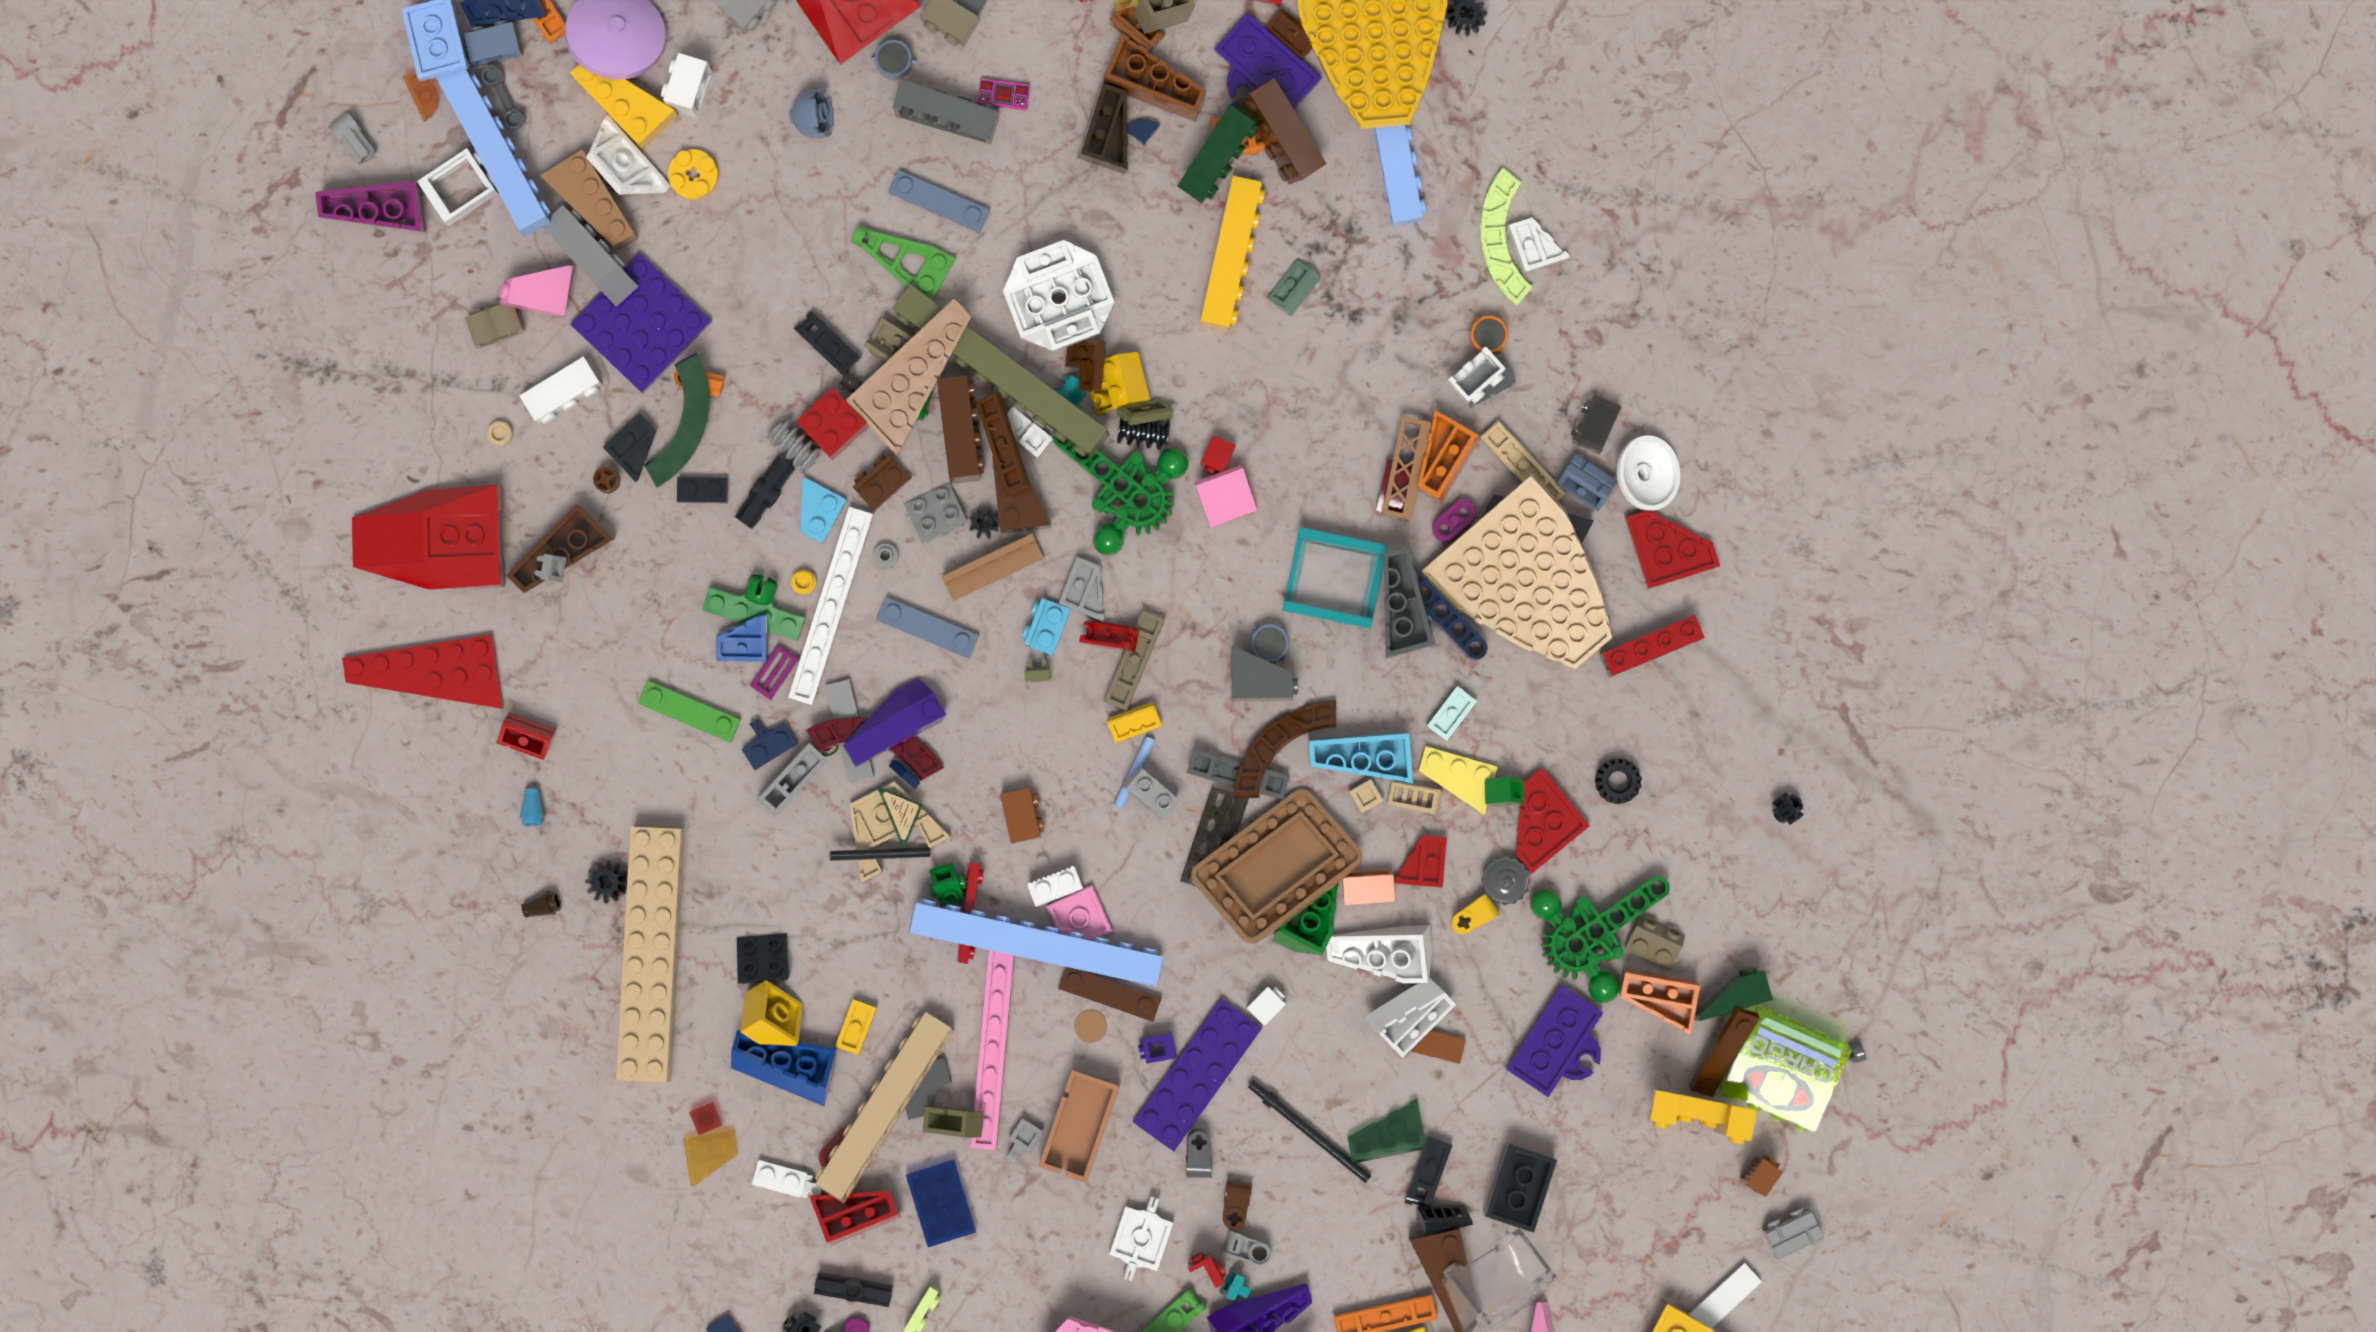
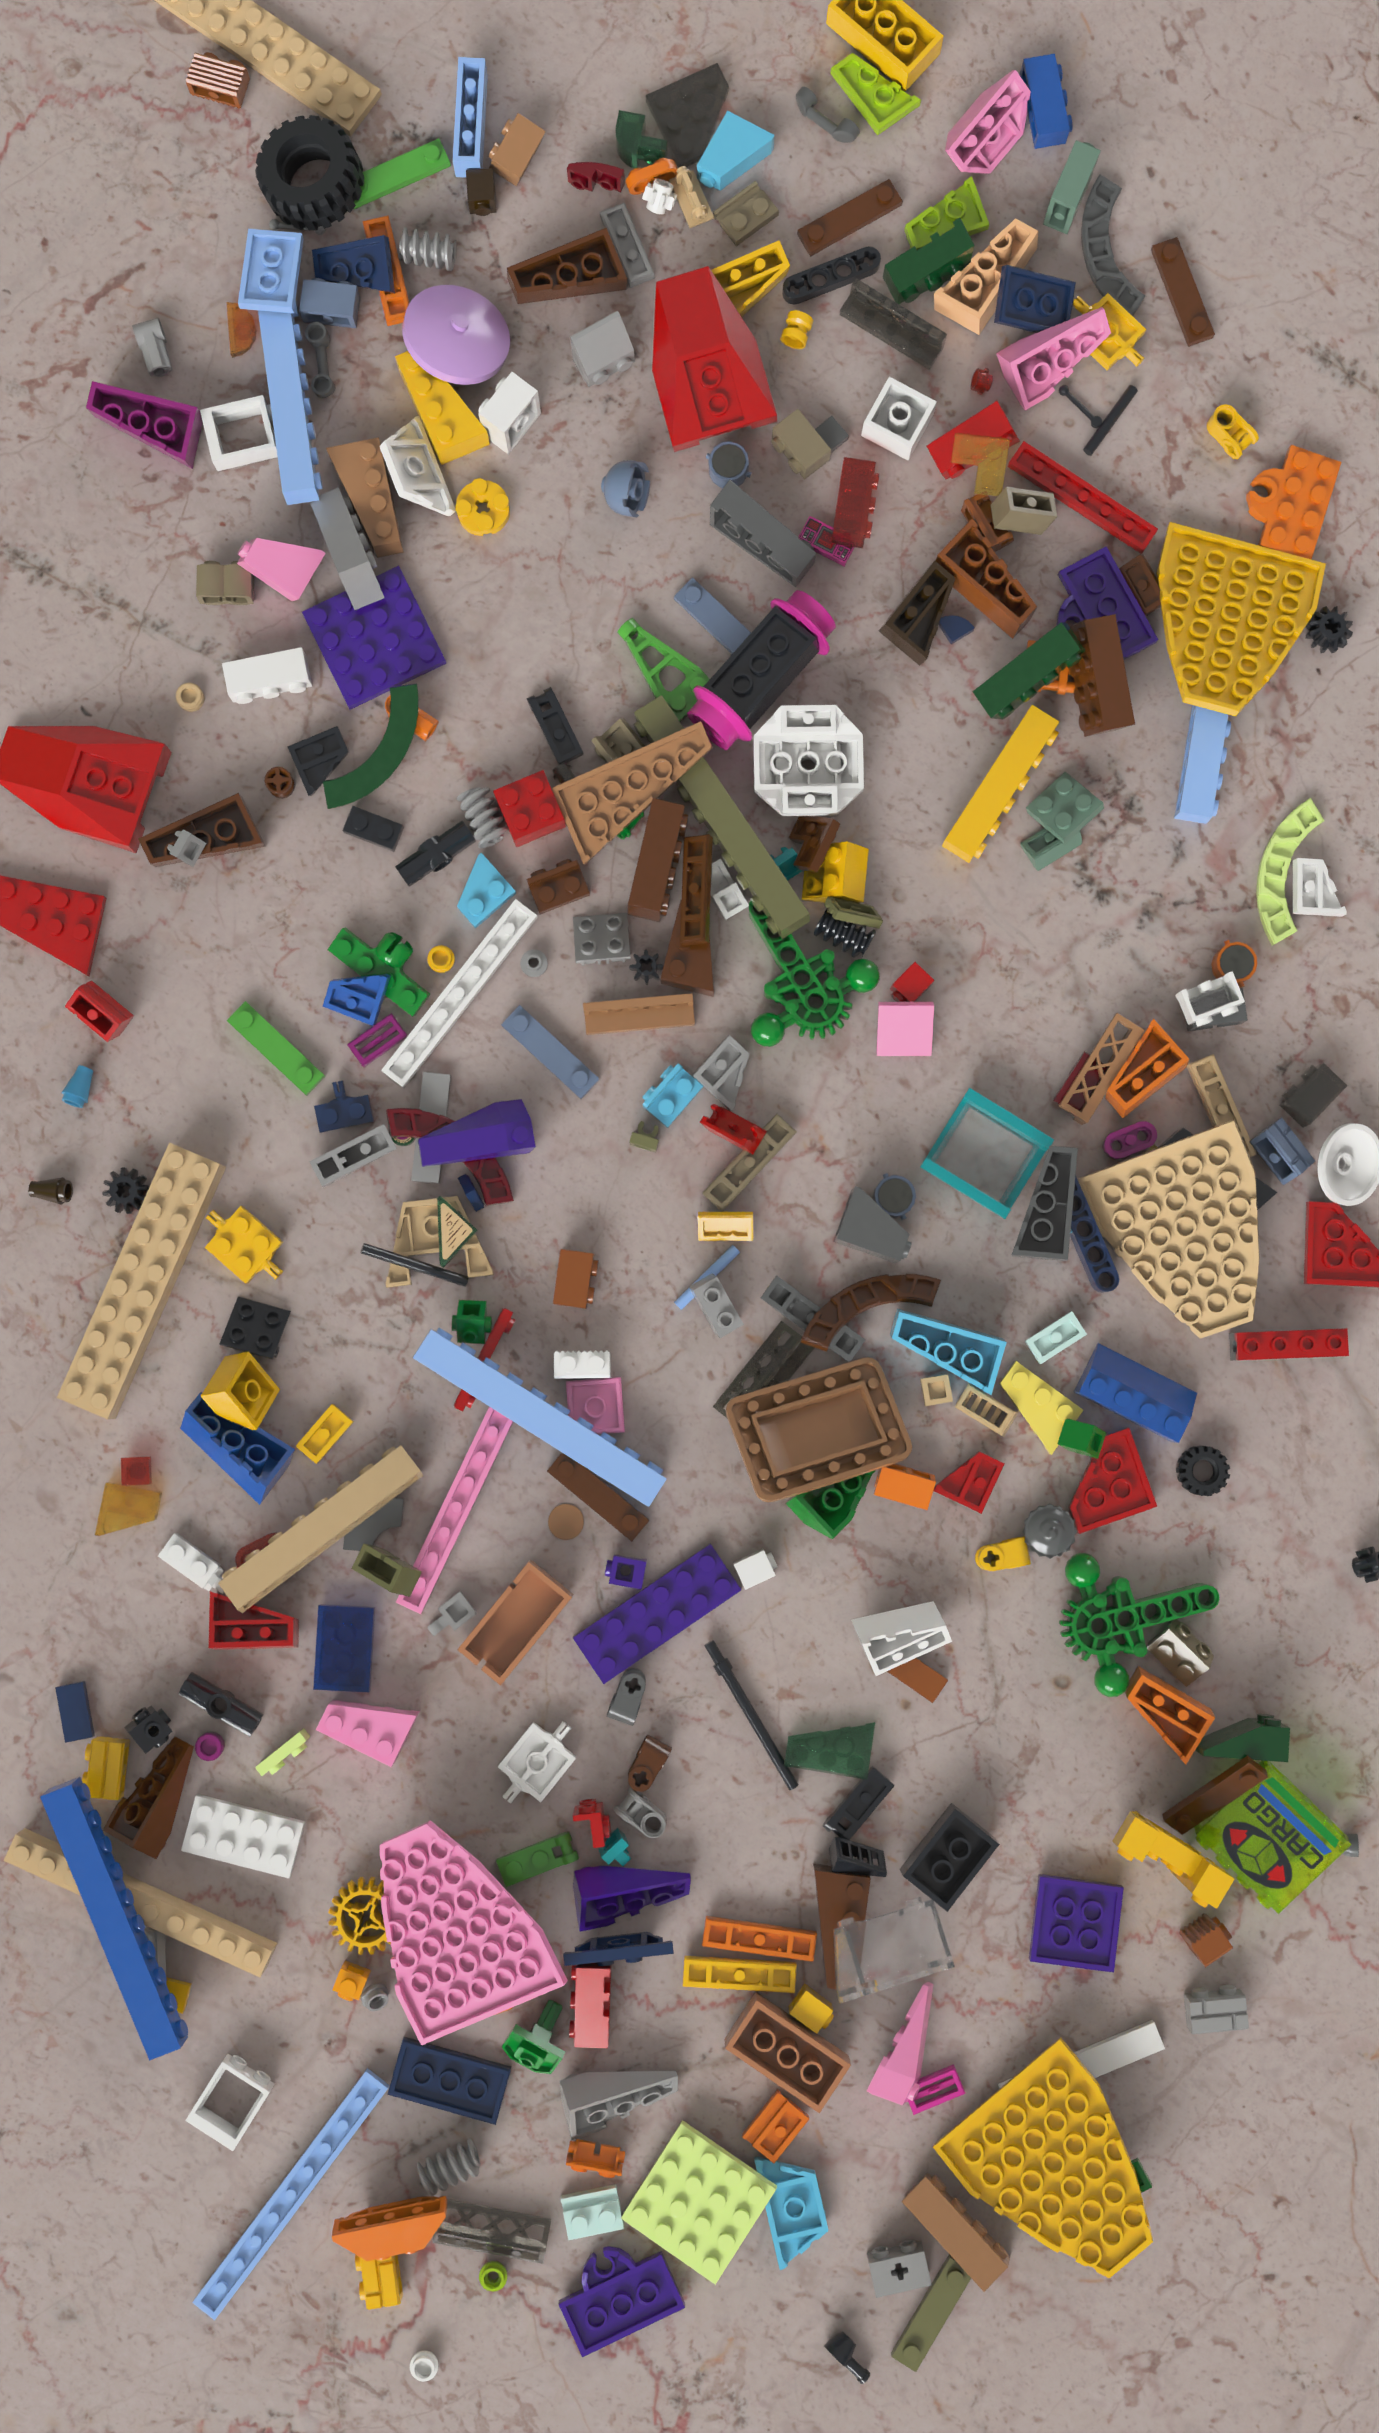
camera: 20 degrees right, 0 degrees up
(725, 891) = (244, 1244): none -> yellow plate
(988, 231) = (762, 668): none -> black brick
(988, 1263) = (368, 1728): none -> bright pink wedge
(1015, 54) = (855, 502): none -> clear red brick
(1294, 253) = (1065, 807): none -> sand green plate
(1391, 952) = (903, 1560): white wedge -> none
(1538, 735) = (1137, 1393): none -> blue slope
(1558, 1043) = (1042, 1719): dark purple plate -> none
(1648, 1204) = (1076, 1923): none -> dark purple plate

